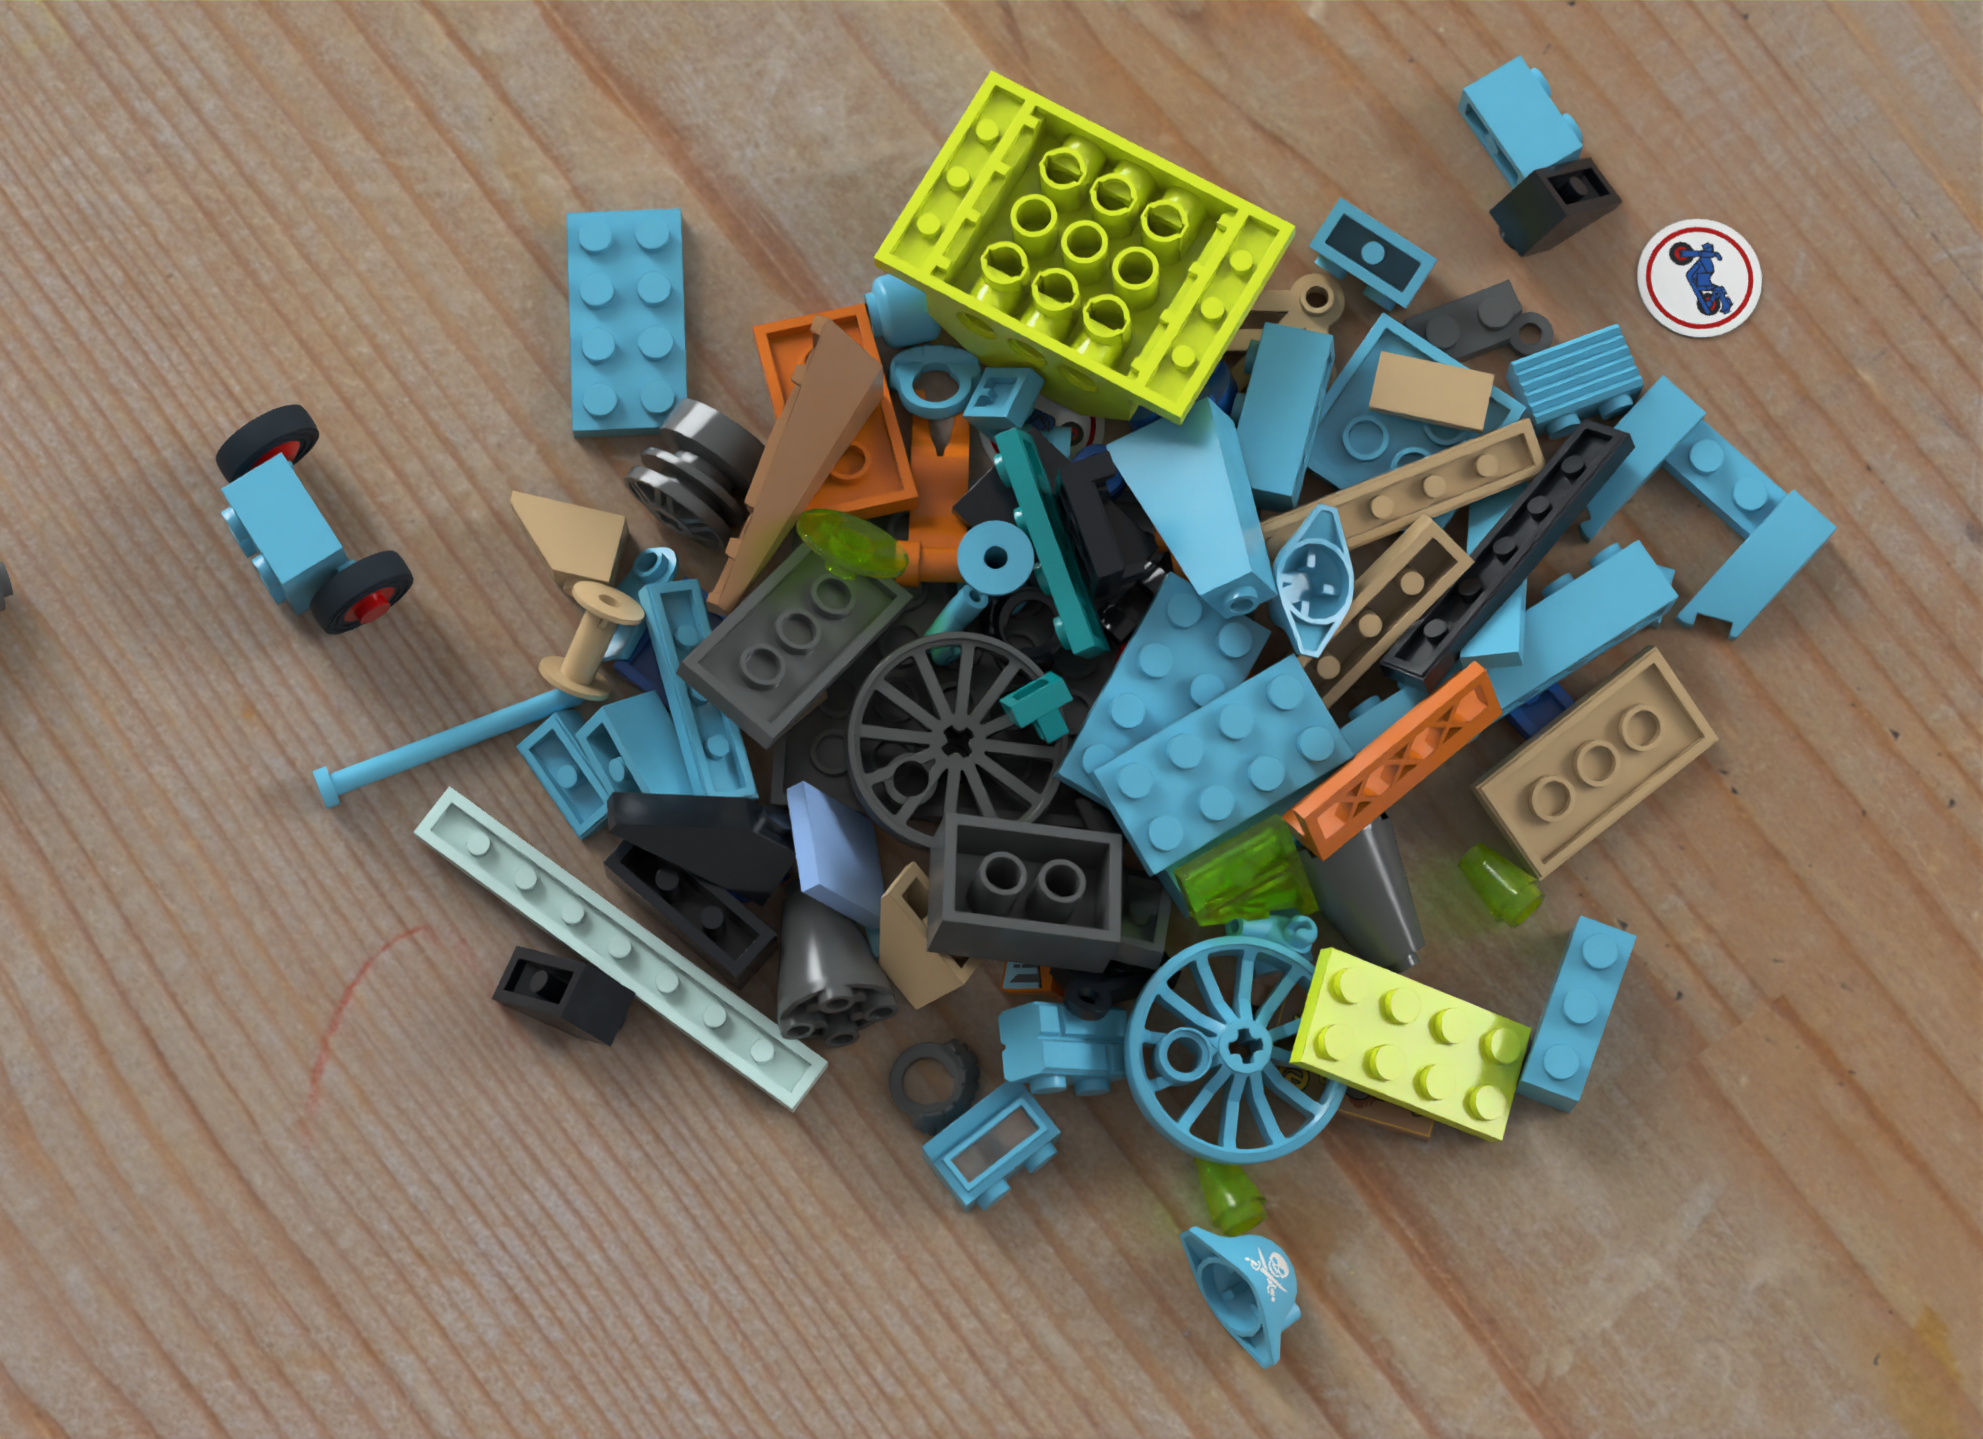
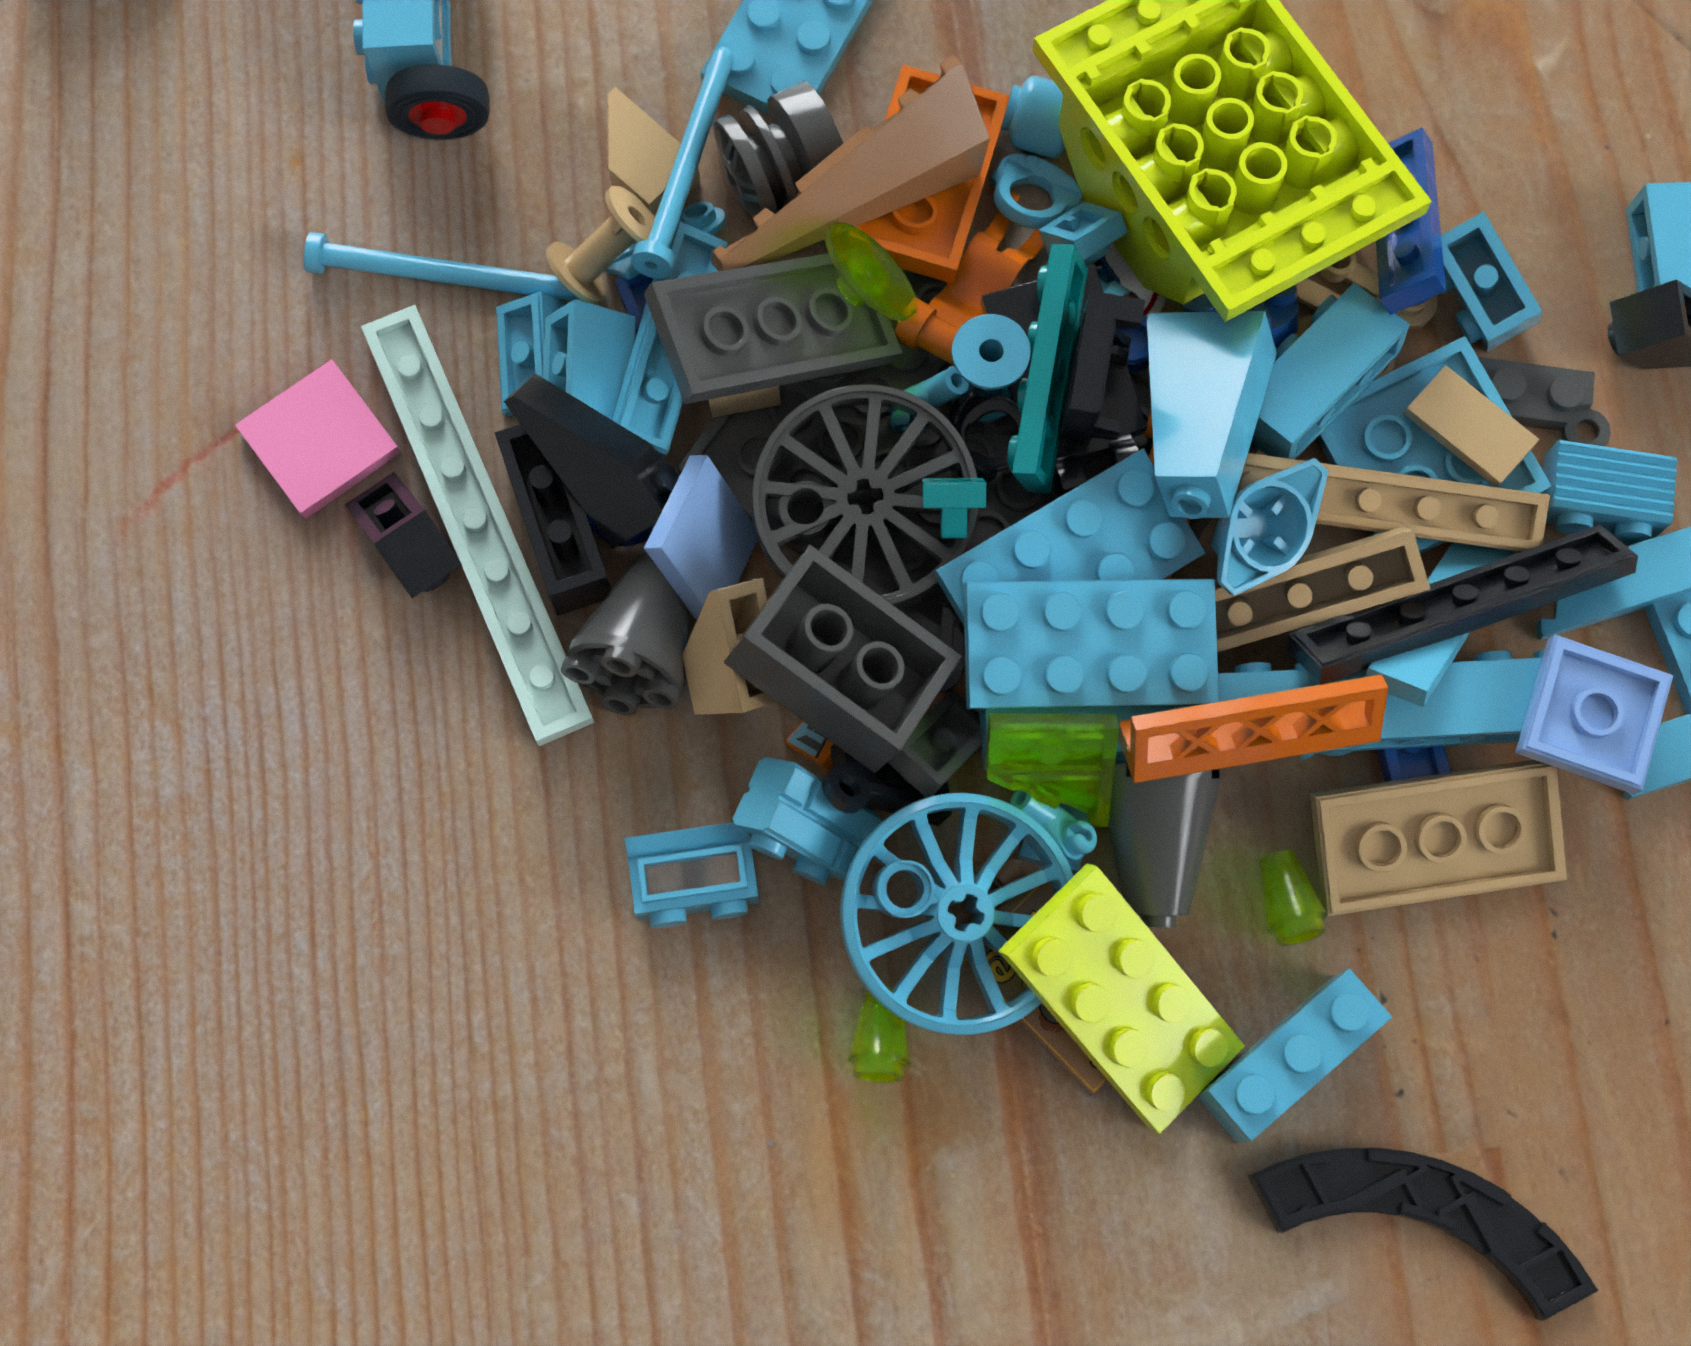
camera: 30 degrees right, 0 degrees up
(432, 953) = (318, 439): none -> bright pink tile
(651, 630) = (654, 255): none -> medium azure bar
(961, 1066) = (709, 787): dark grey piece -> none
(1246, 1287) = (848, 1135): medium azure hat -> none
(1304, 276) = (1412, 256): none -> blue plate
(1664, 591) = (1594, 714): none -> light blue tile
(1751, 1063) = (1436, 1195): none -> black tile

